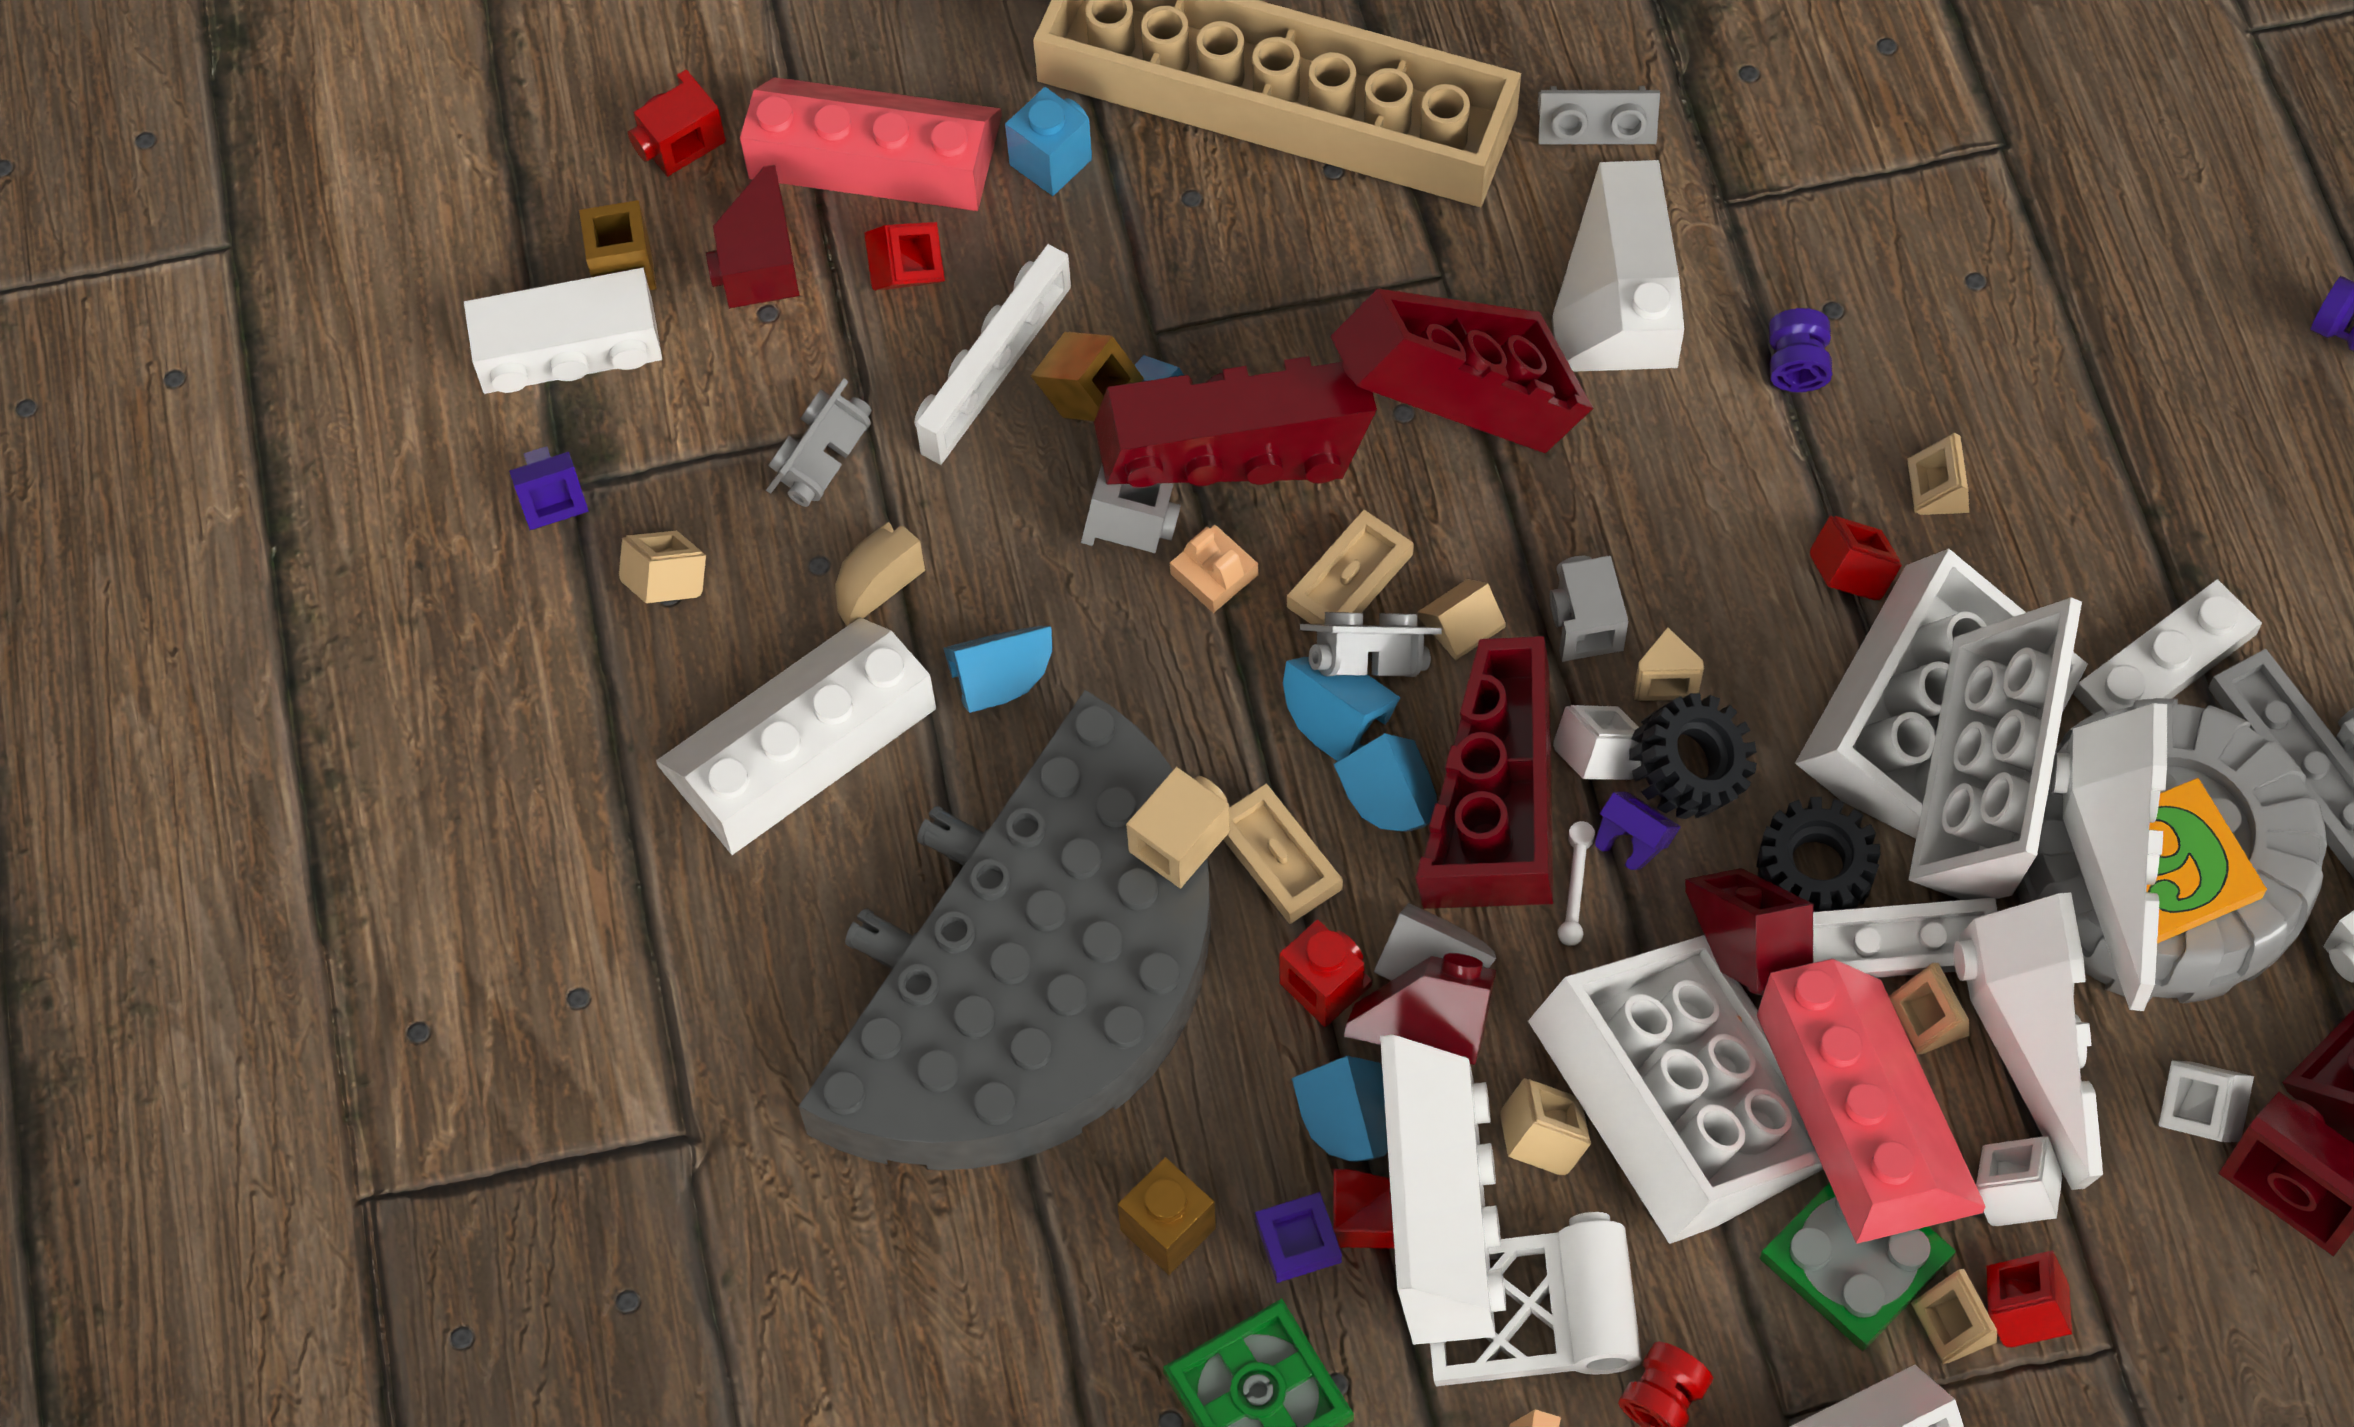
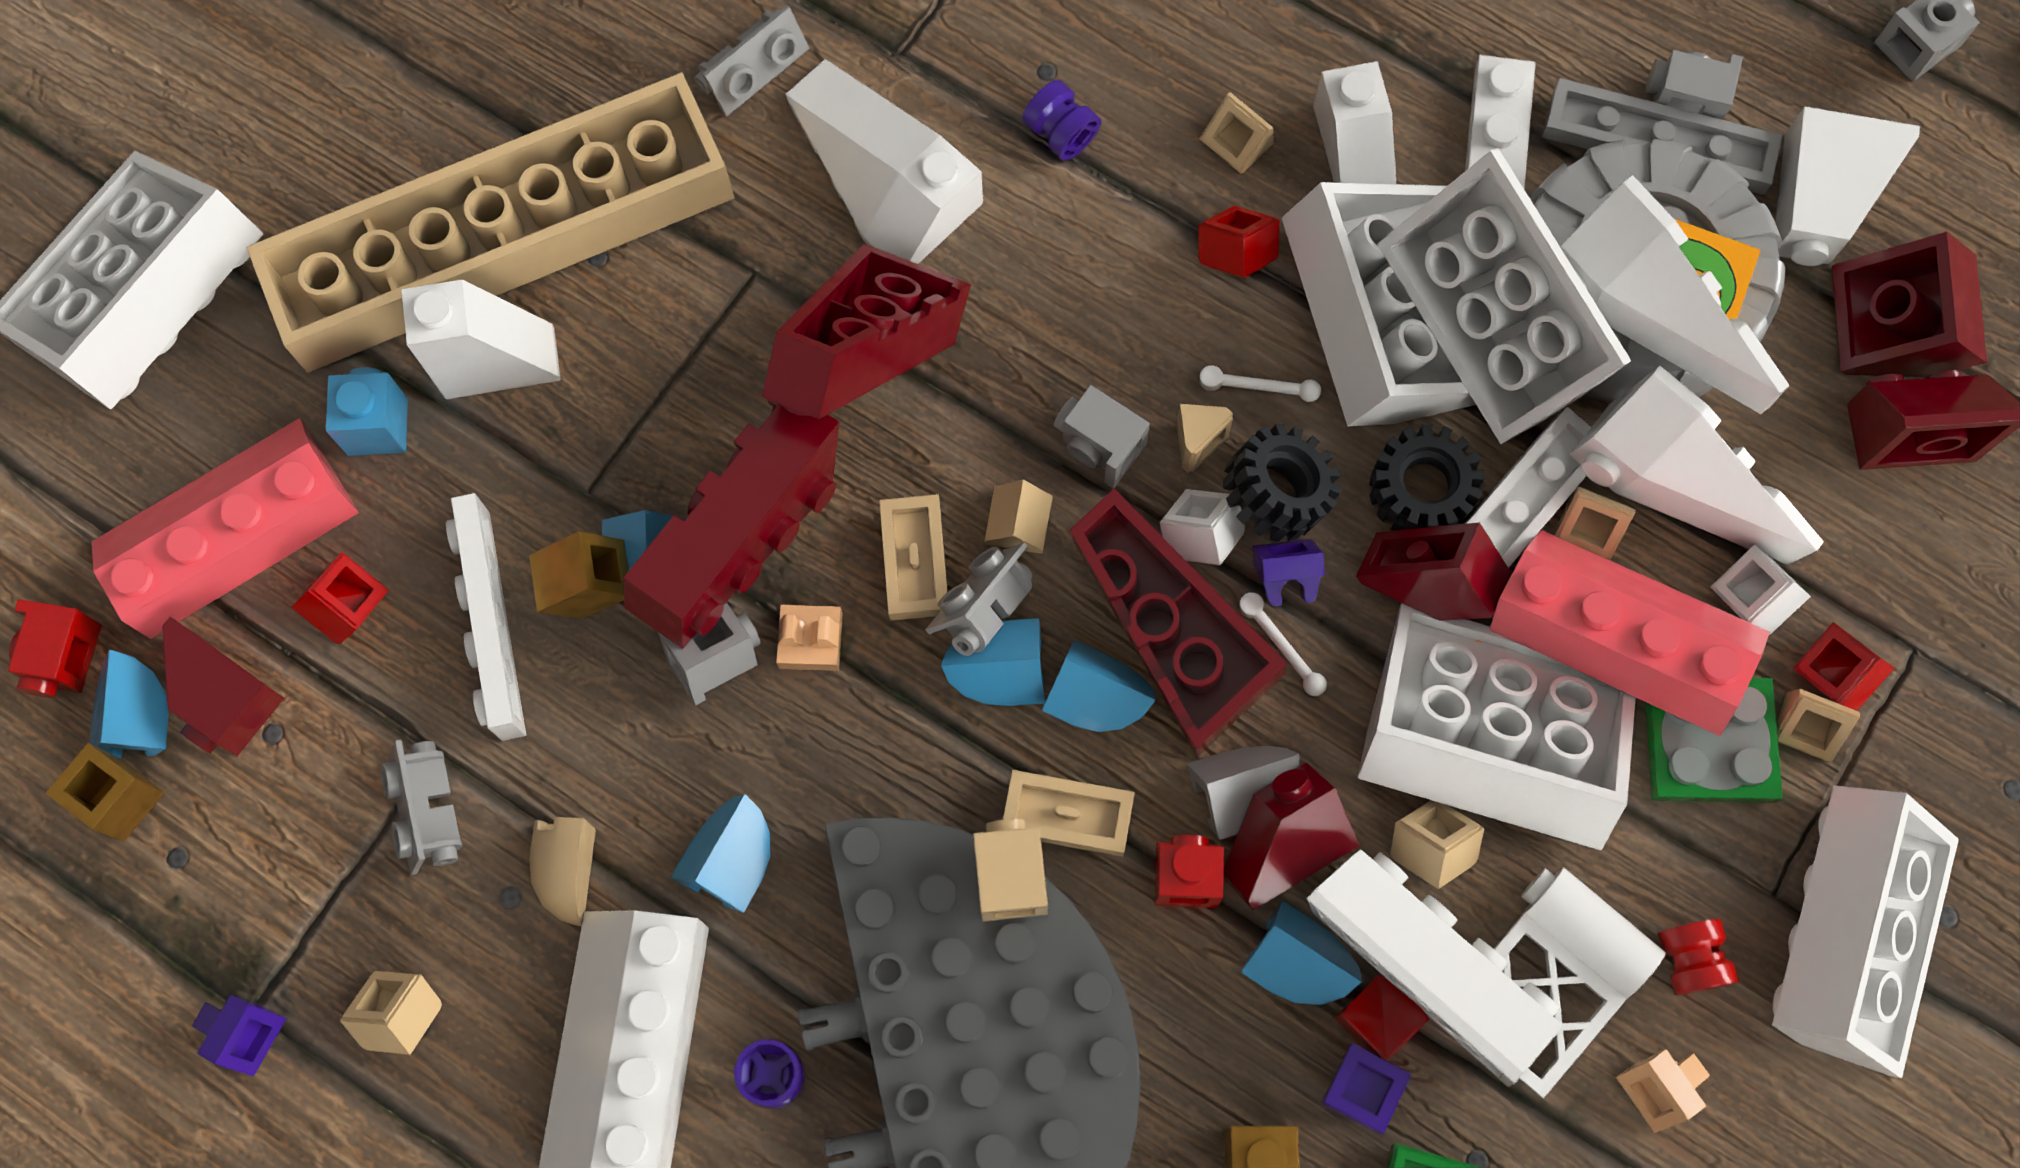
camera: 45 degrees left, 10 degrees up
(562, 331) = (122, 897): white brick -> none
(688, 210) = (129, 708): none -> dark azure brick
(872, 822) = (760, 1074): none -> dark purple wheel
(1176, 149) = (477, 340): none -> white slope
(1727, 646) = (1212, 378): none -> white hinge
(2046, 544) = (1356, 124): none -> white slope
(2206, 1101) = (1814, 427): white slope -> none

